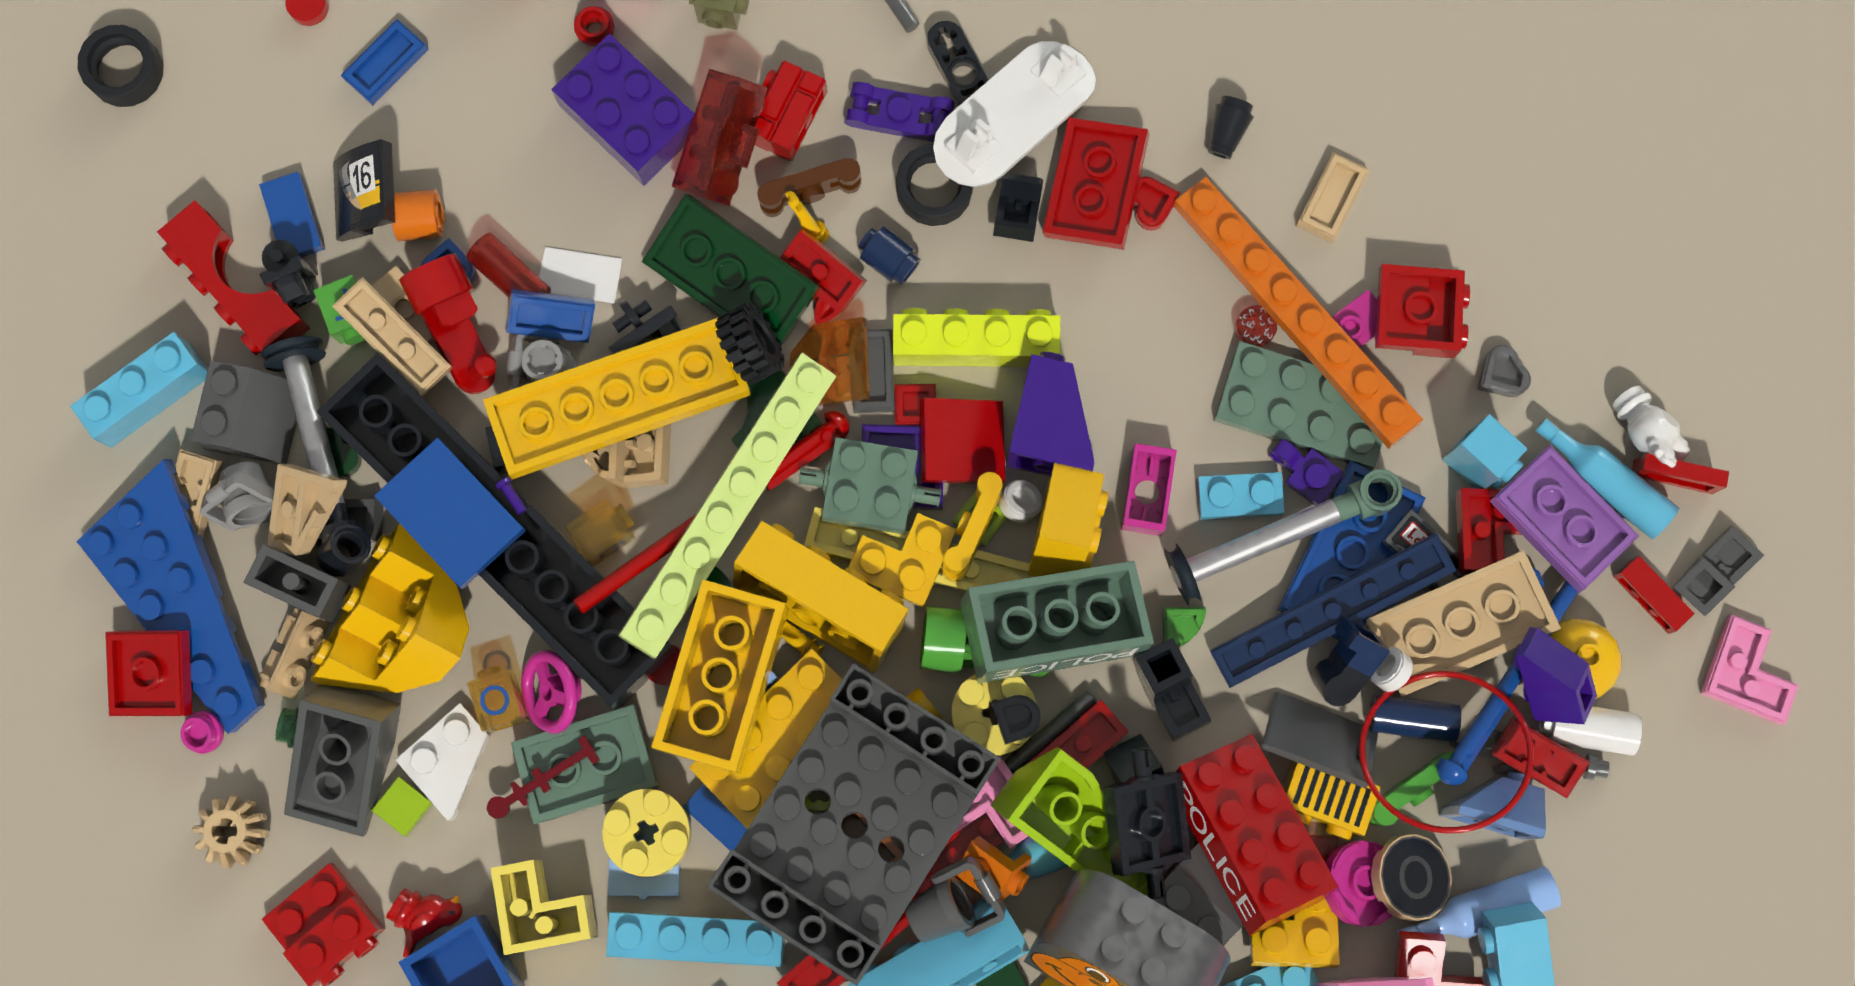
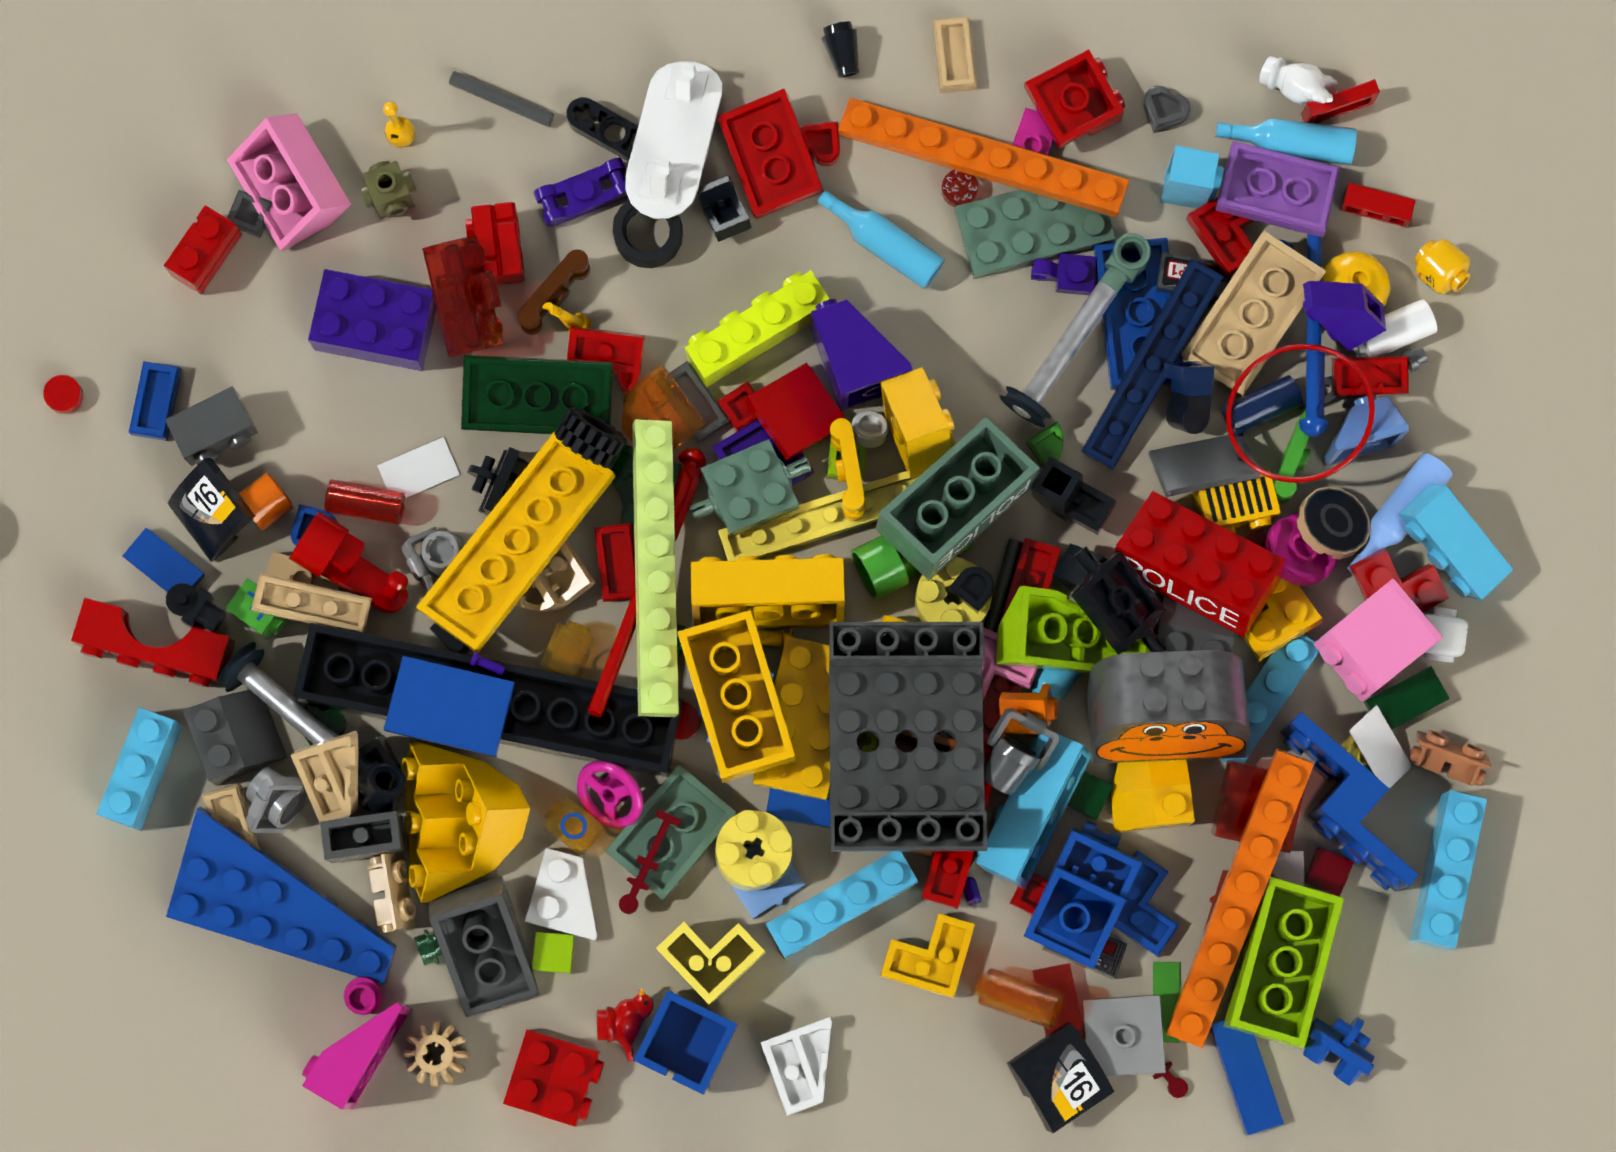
camera: 35 degrees left, 0 degrees up
(132, 793) = (349, 1064): none -> dark pink slope
(148, 673) = (292, 977): red tile -> none
(415, 116) = (212, 426): none -> dark grey brick
(550, 316) = (420, 513): blue tile -> none
(589, 16) = (299, 261): red plate -> none
(700, 473) = (616, 560): none -> red tile
(888, 255) = (648, 306): dark blue brick -> none
(908, 571) = (824, 525): yellow plate -> none
(1153, 334) = (887, 241): none -> medium azure piece
(1153, 465) = (954, 339): dark pink piece -> none
(1240, 496) = (1029, 322): medium azure plate -> none
(1393, 671) = (1225, 379): white tile -> none
(1680, 695) = (1442, 266): none -> yellow head
(1718, 570) = (1412, 157): dark grey slope -> none
(1736, 674) = (1475, 228): bright pink tile -> none

